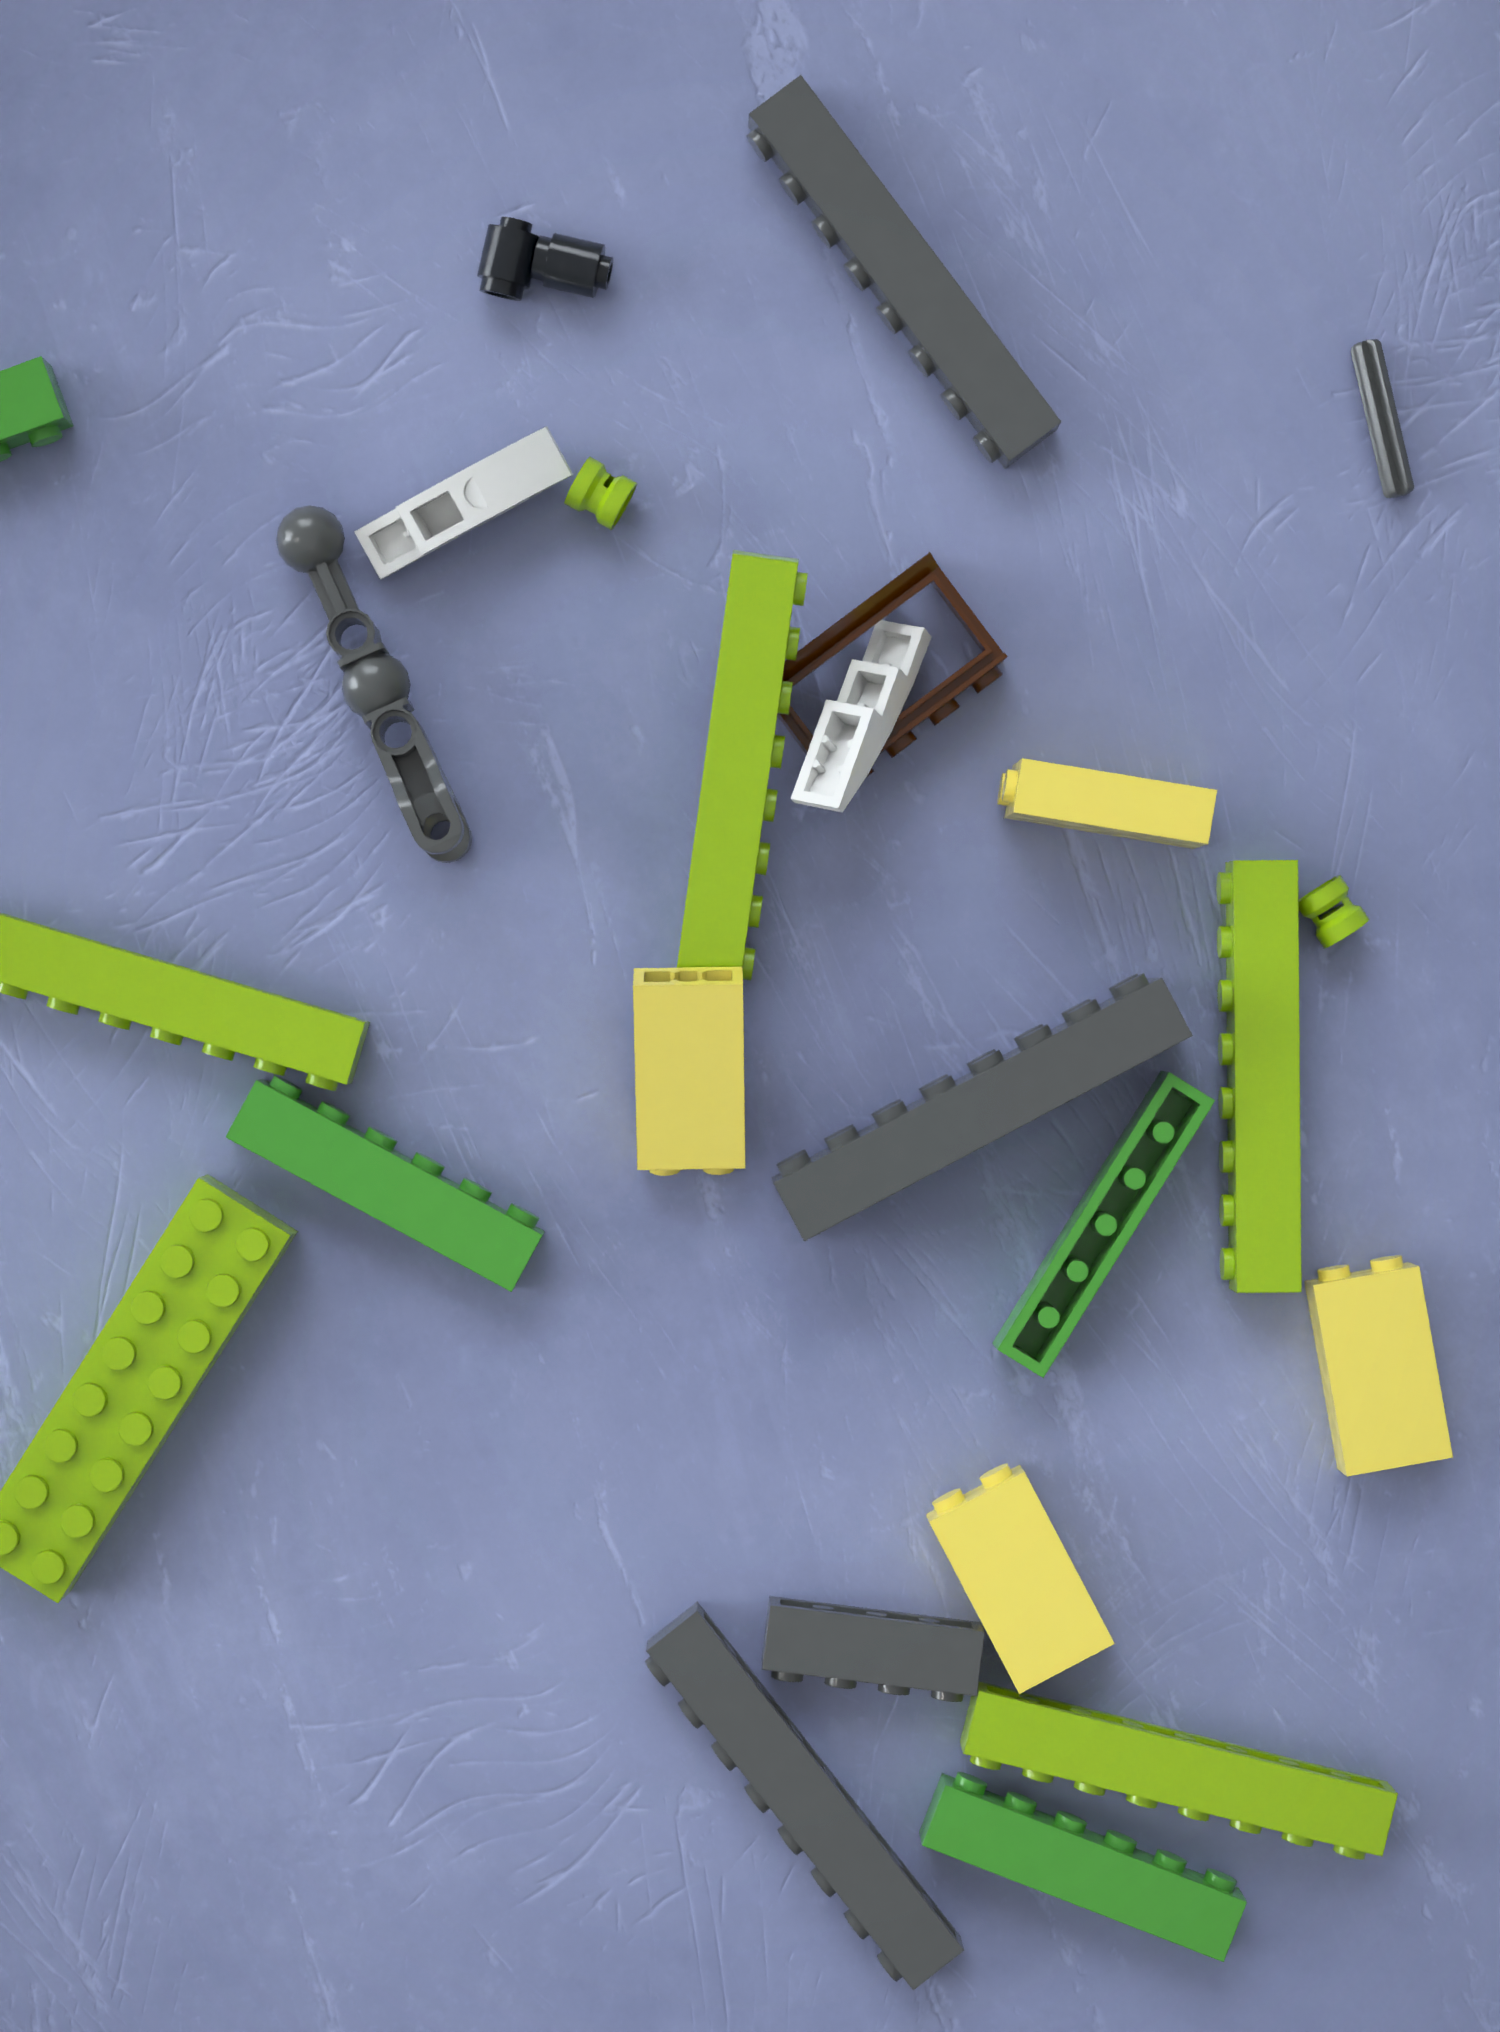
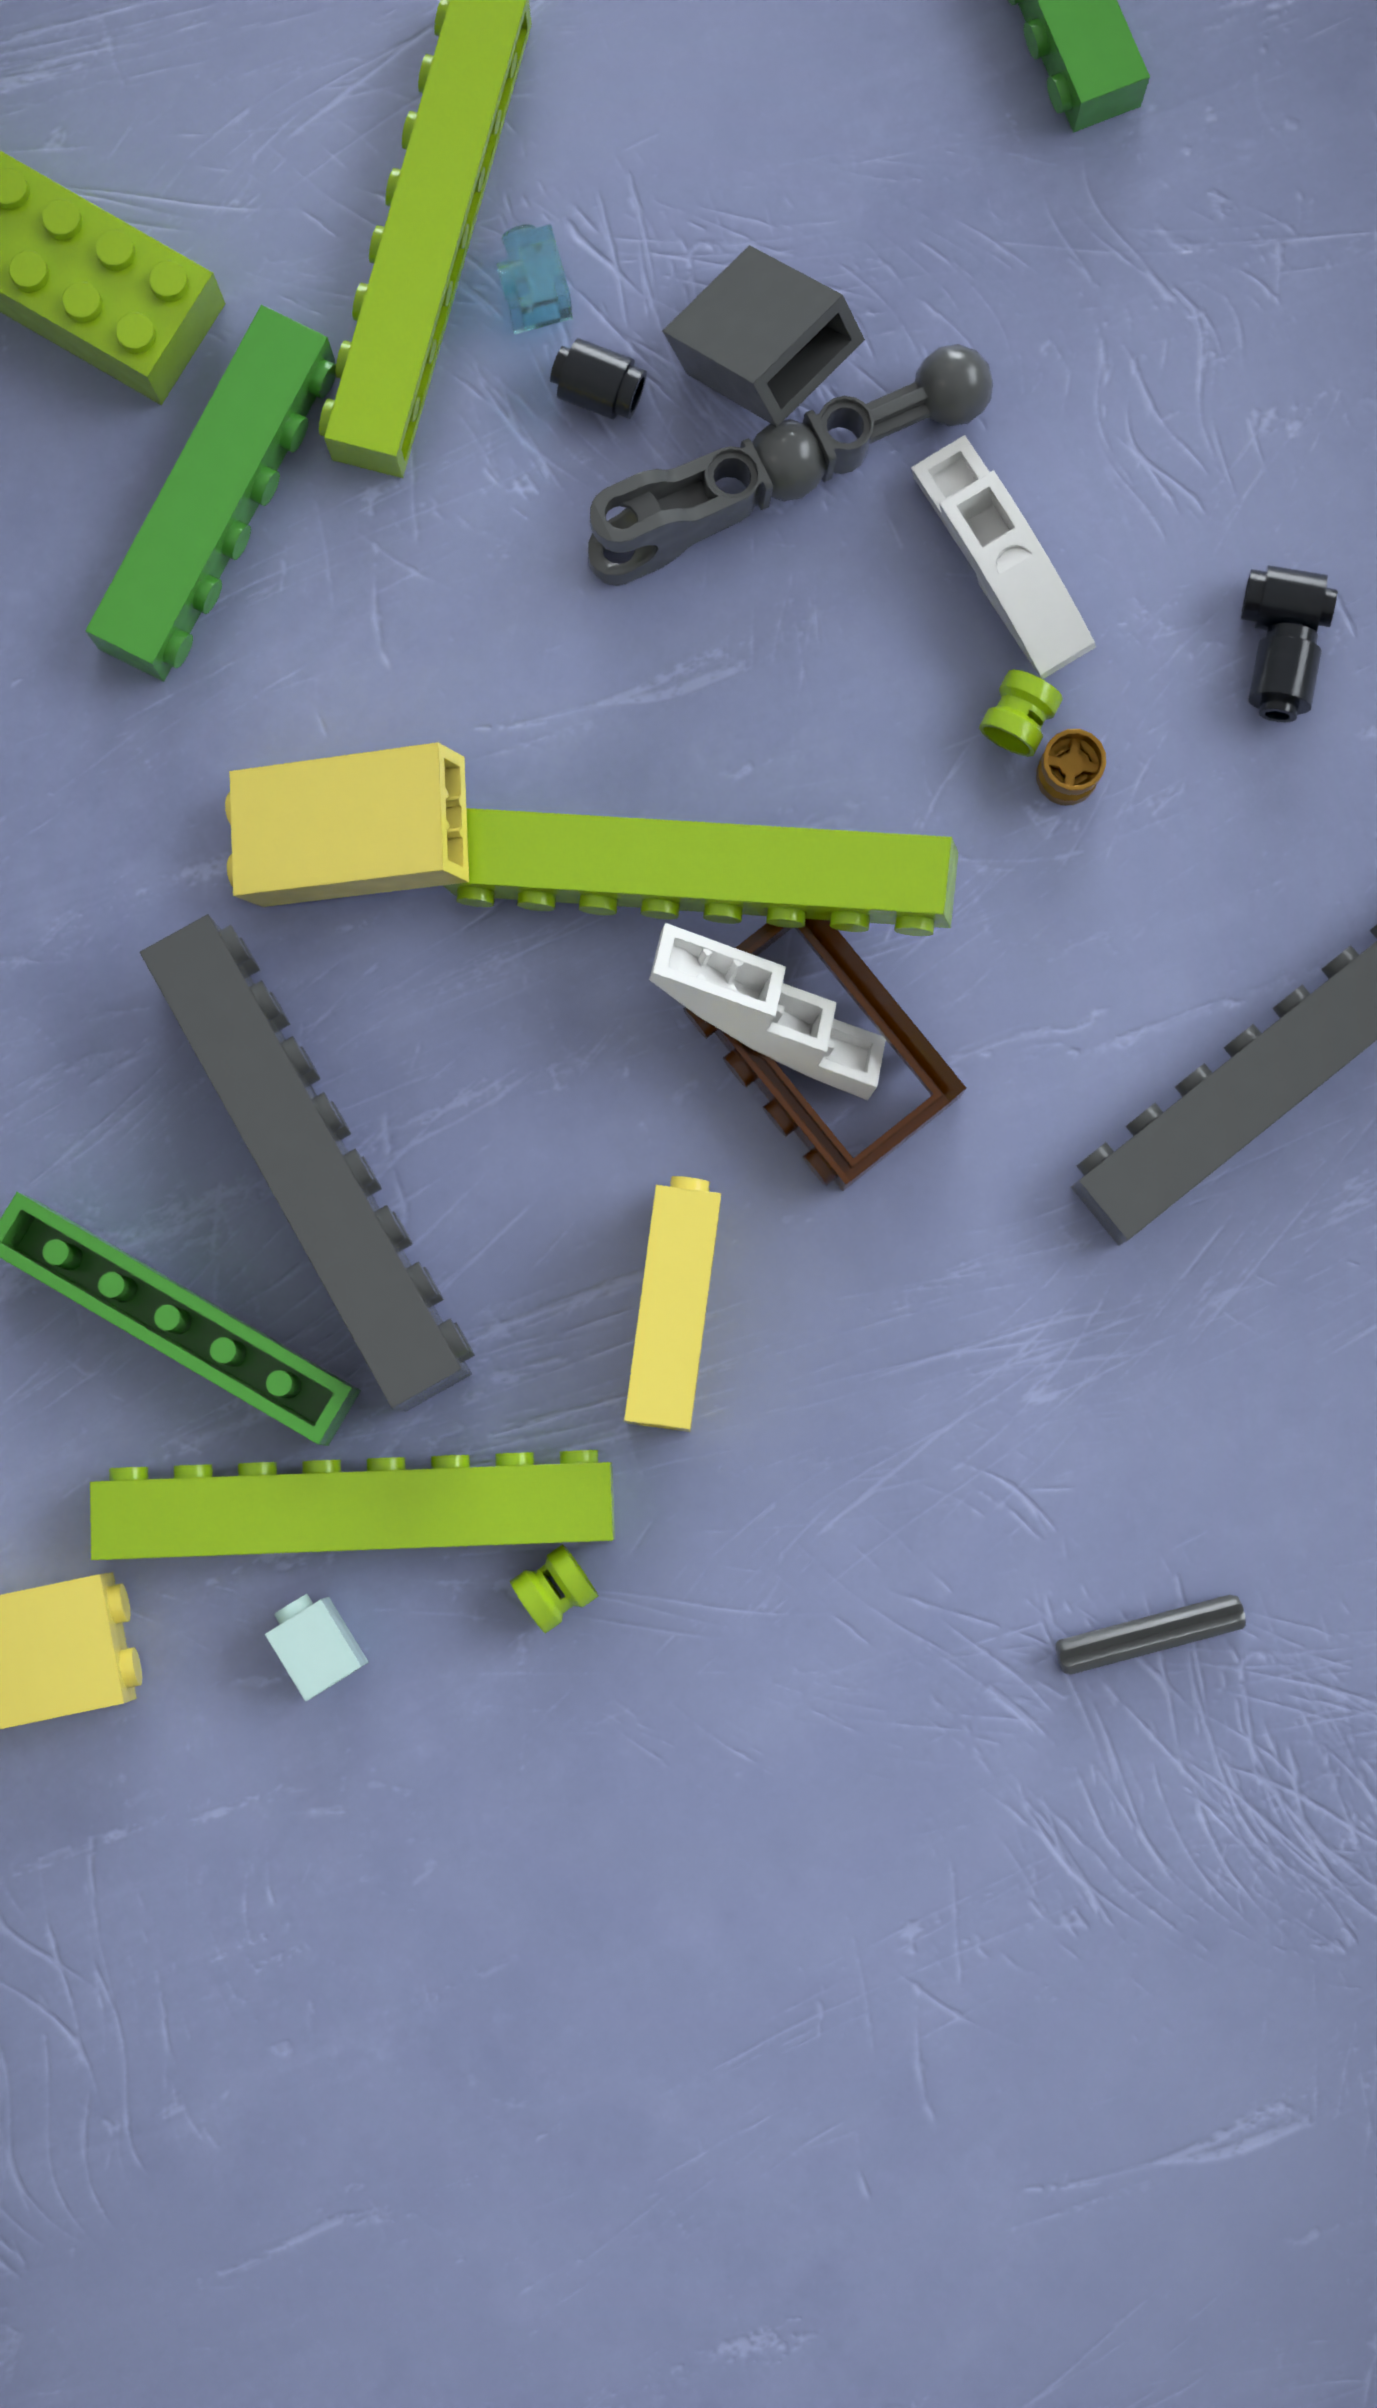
camera: 90 degrees right, 5 degrees down
(199, 902) = (533, 278): none -> clear light blue brick
(267, 701) = (764, 335): none -> dark grey brick
(293, 848) = (598, 379): none -> black brick
(650, 442) = (1073, 753): none -> pearl gold wheel
(1373, 1110) = (315, 1645): none -> light aqua brick

